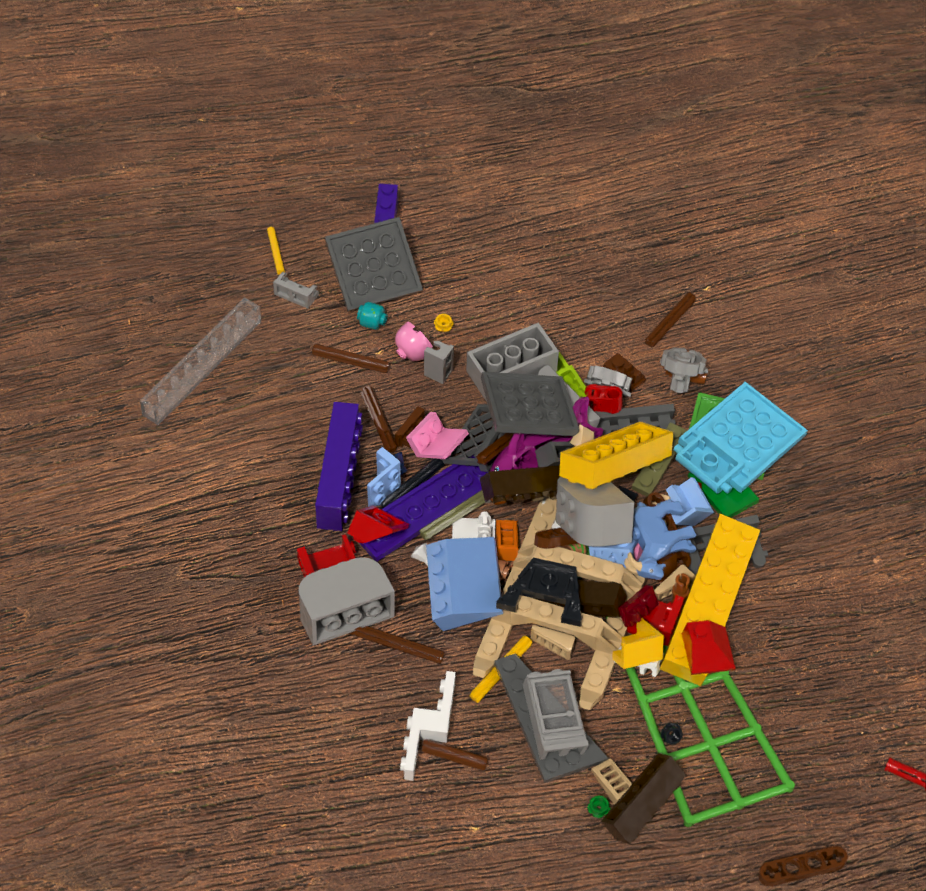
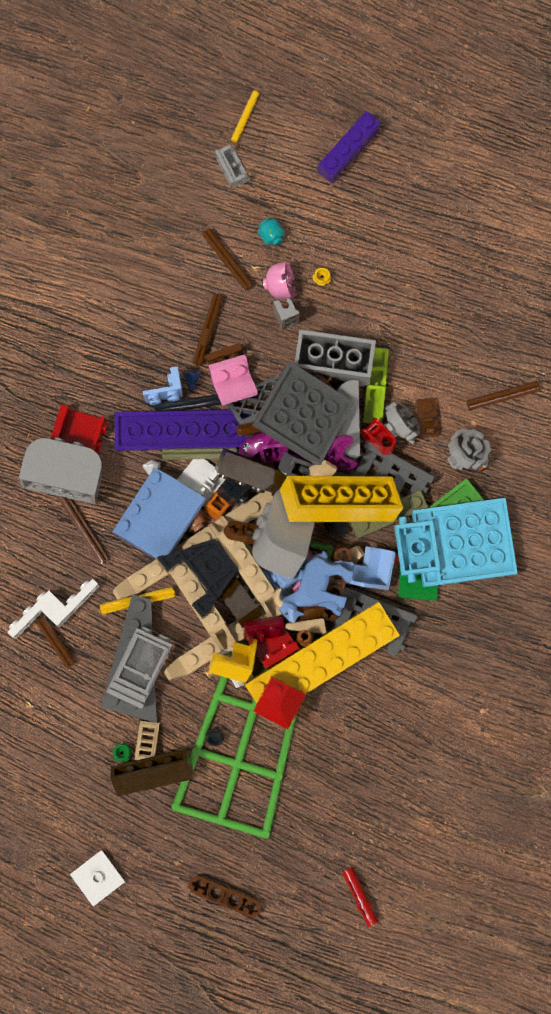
camera: 40 degrees right, 25 degrees up
(200, 361) = (111, 187): clear brick -> none
(338, 466) = (142, 354): dark purple brick -> none
(373, 263) = (303, 187): dark grey plate -> none
(374, 523) = (131, 425): red slope -> none
(513, 519) = (233, 492): none -> black brick
(554, 641) = (191, 615): tan slope -> none

